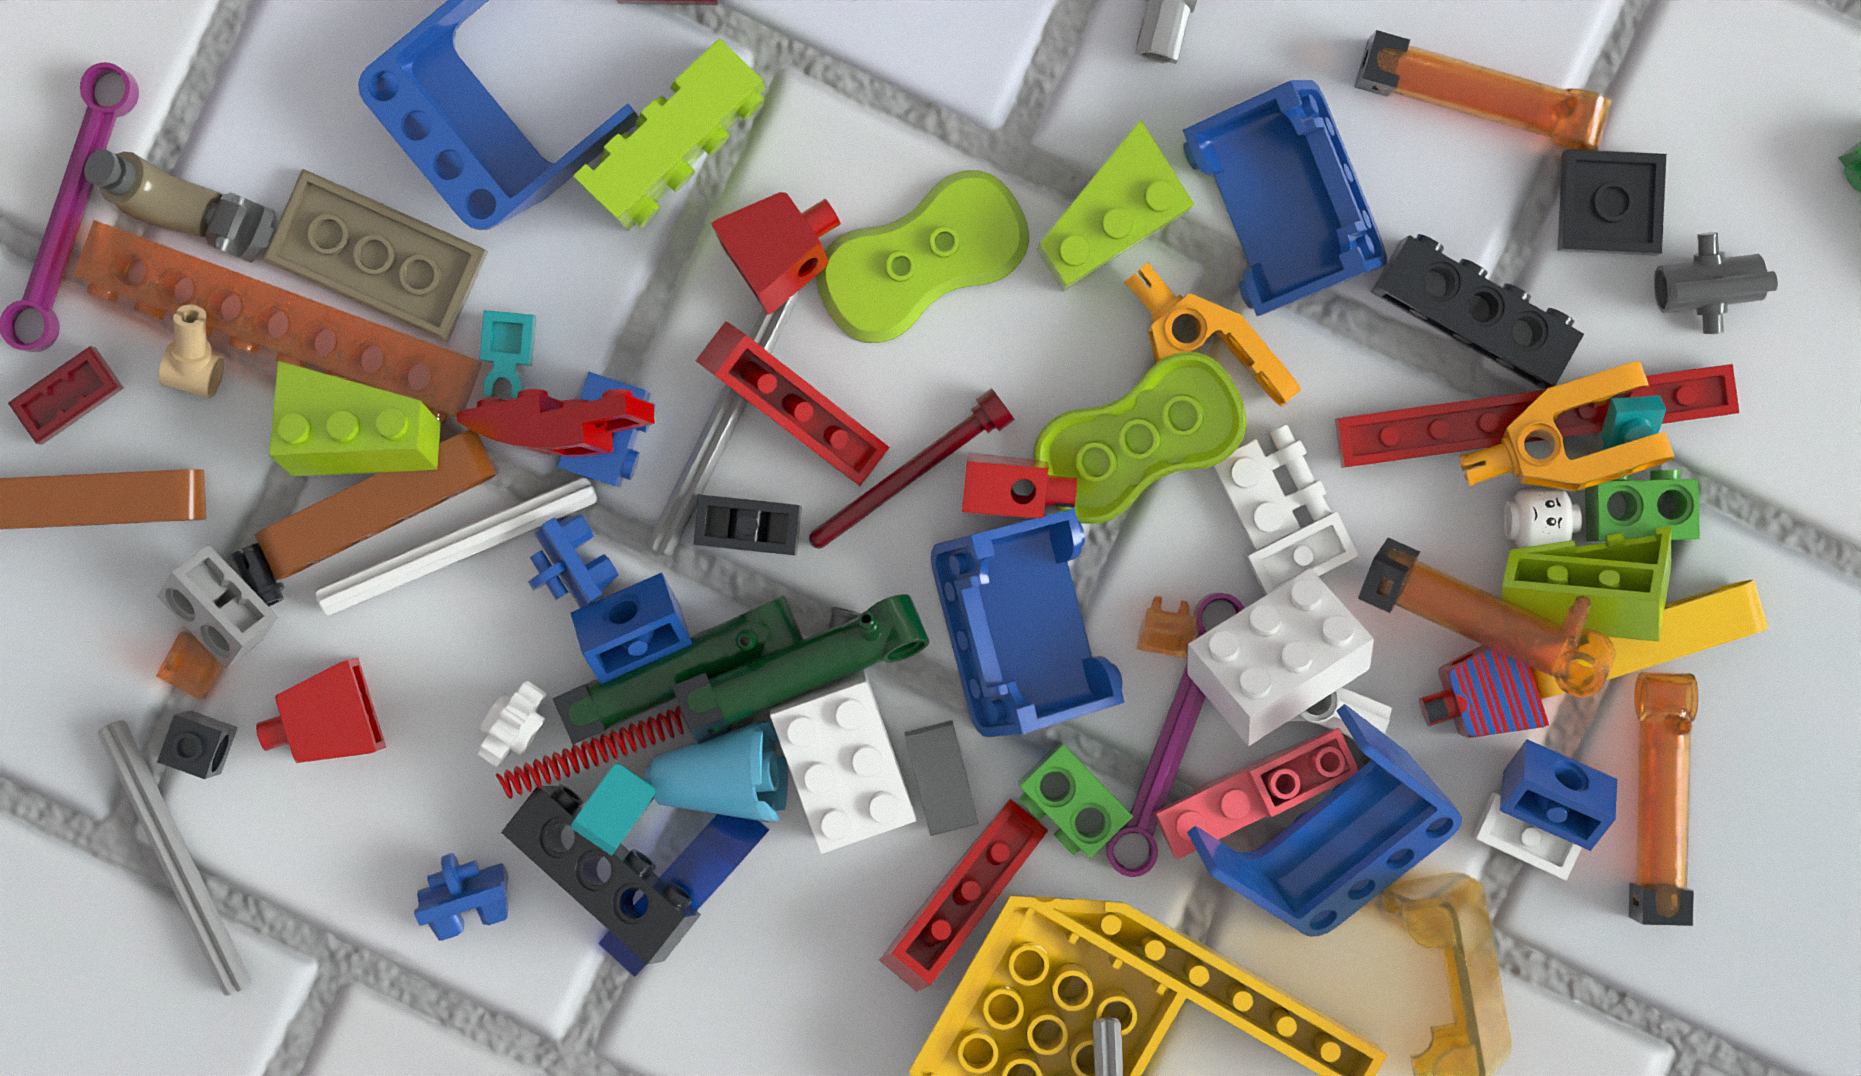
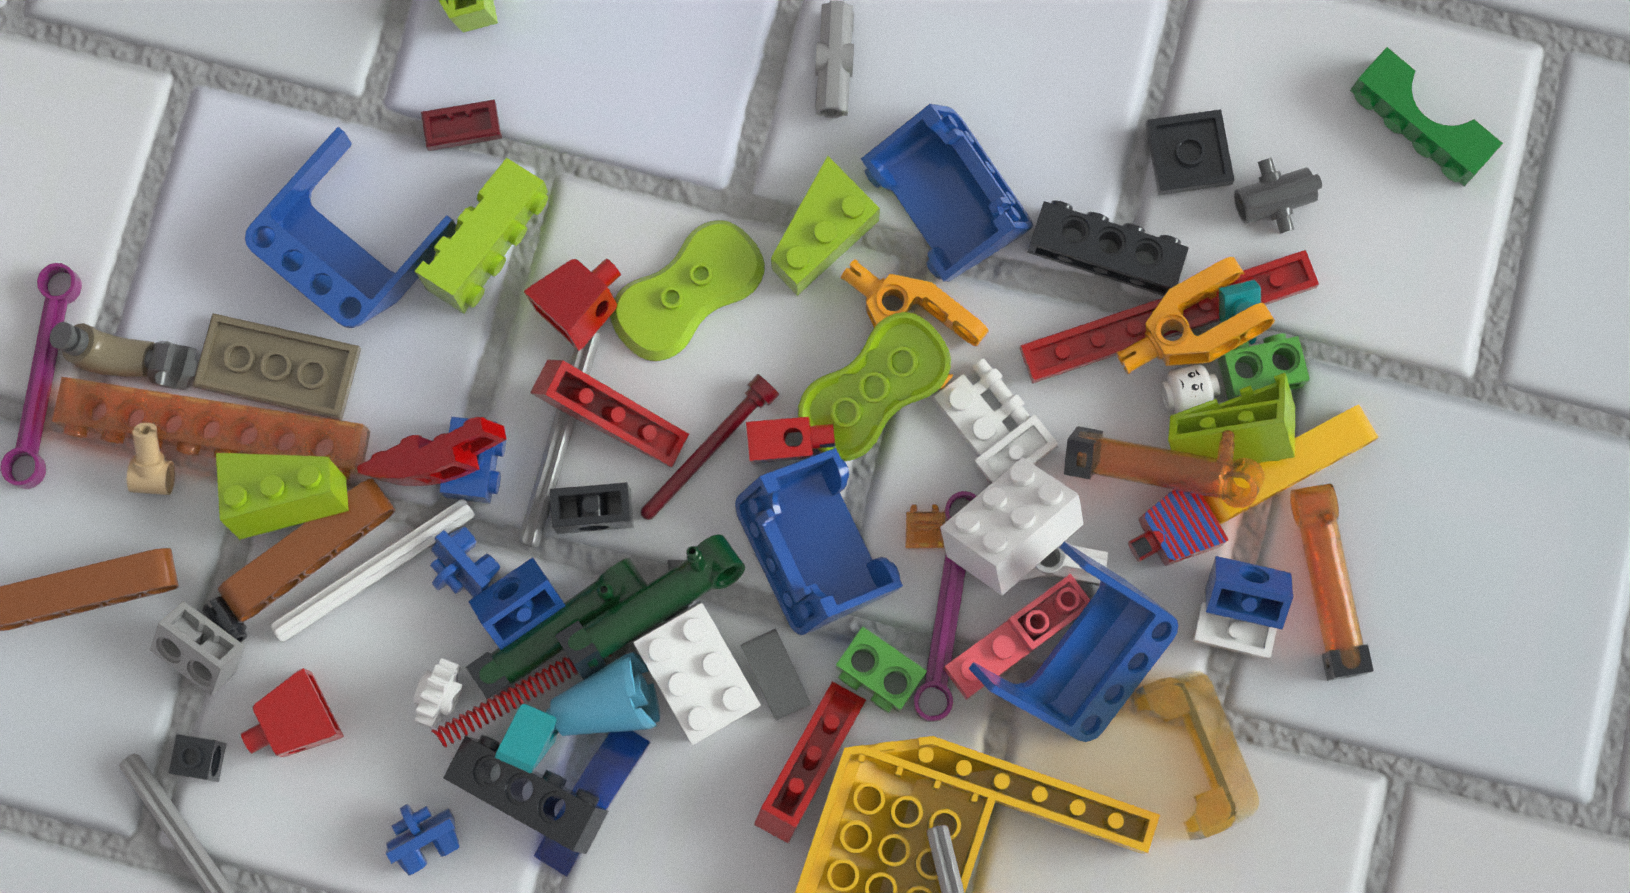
camera: 15 degrees left, 10 degrees down
(65, 395) = (58, 514): dark red plate -> none
(190, 666) = (183, 701): clear orange tile -> none
(506, 342) = (386, 410): teal plate -> none
(1566, 116) = (1143, 96): clear orange piece -> none

